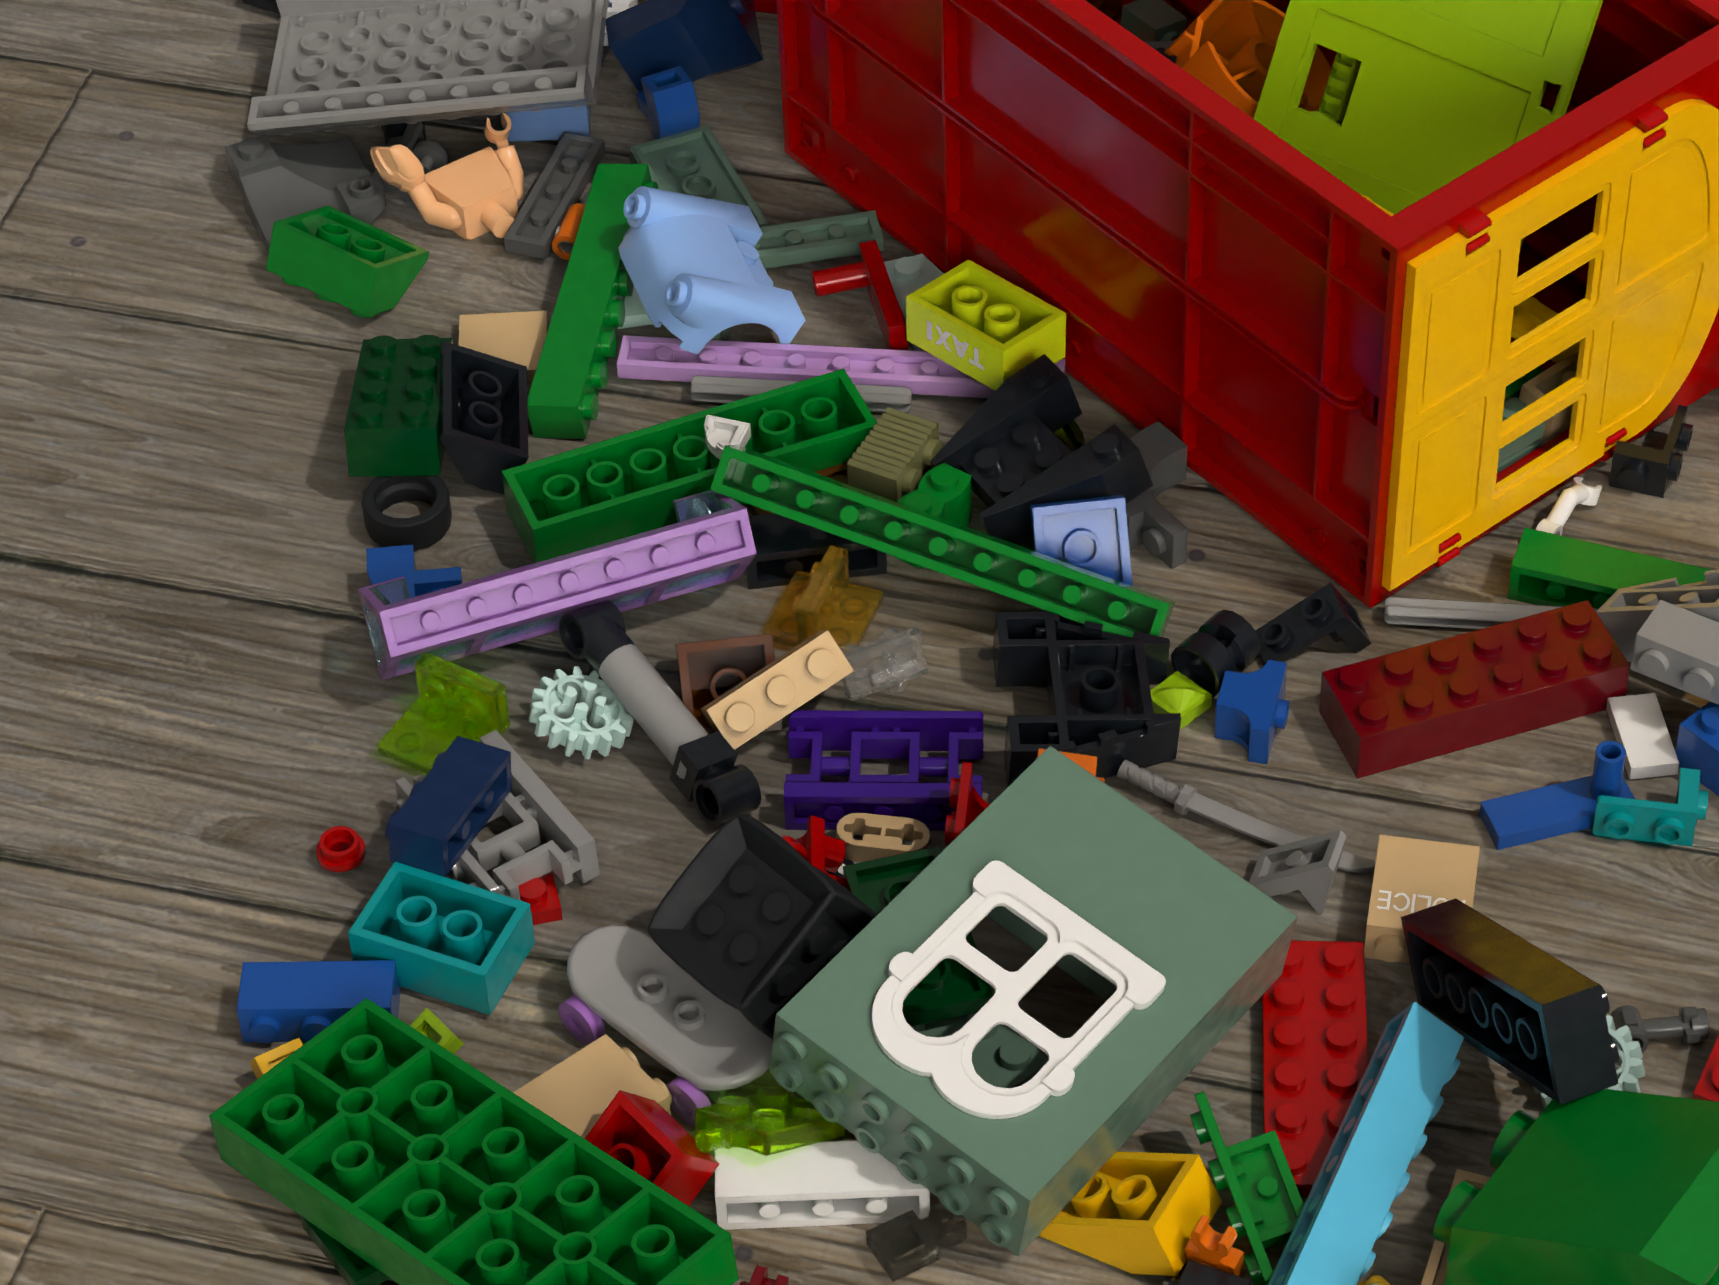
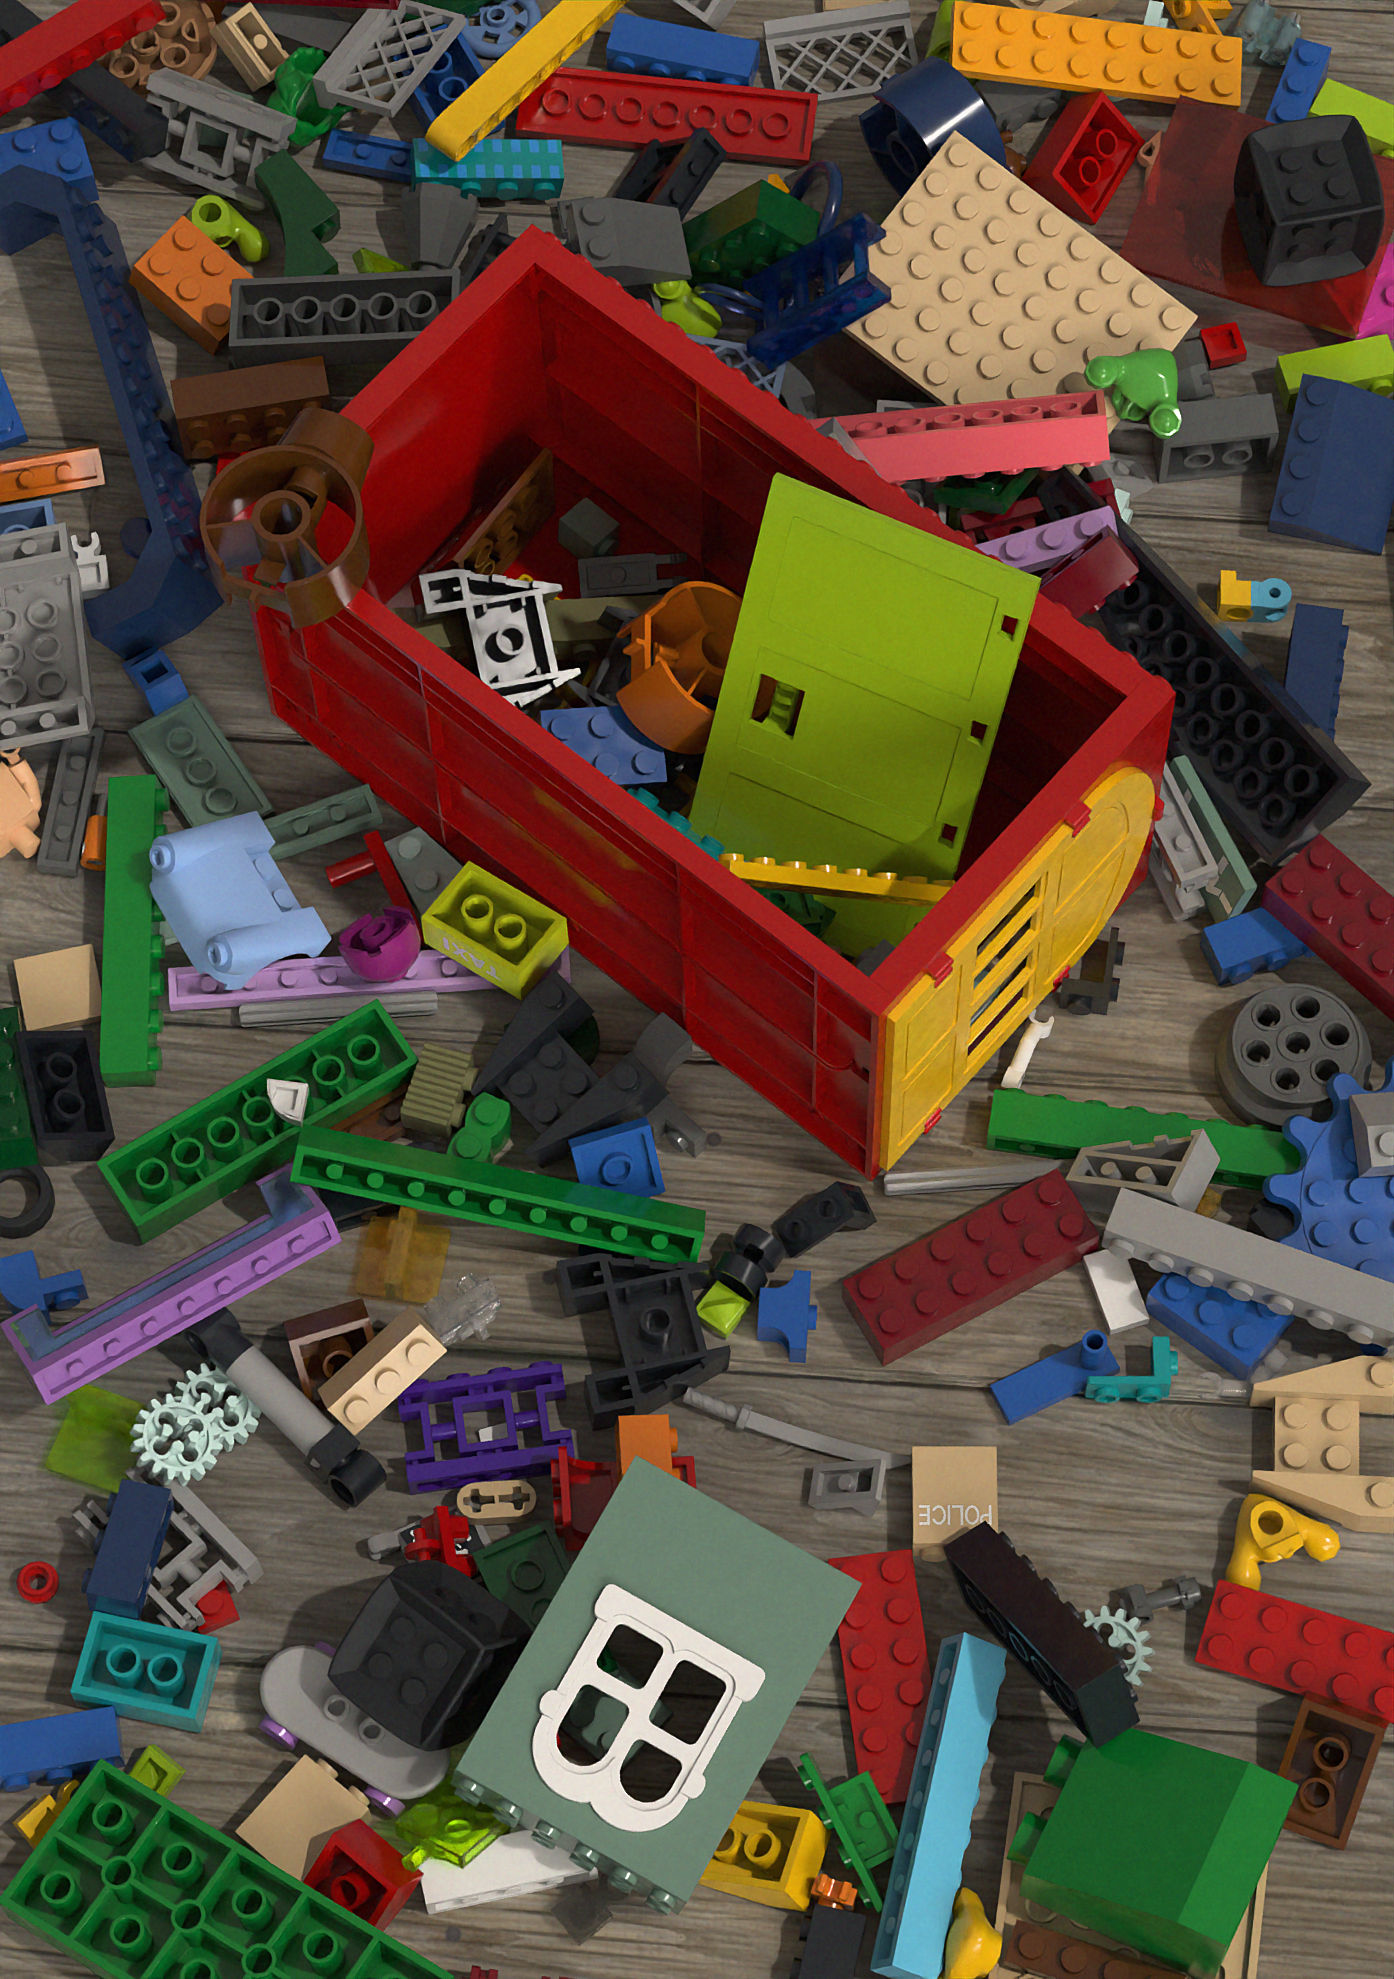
camera: 10 degrees left, 20 degrees up
(546, 710) = (198, 1444): none -> light aqua gear
(860, 328) = (381, 946): none -> magenta cylinder

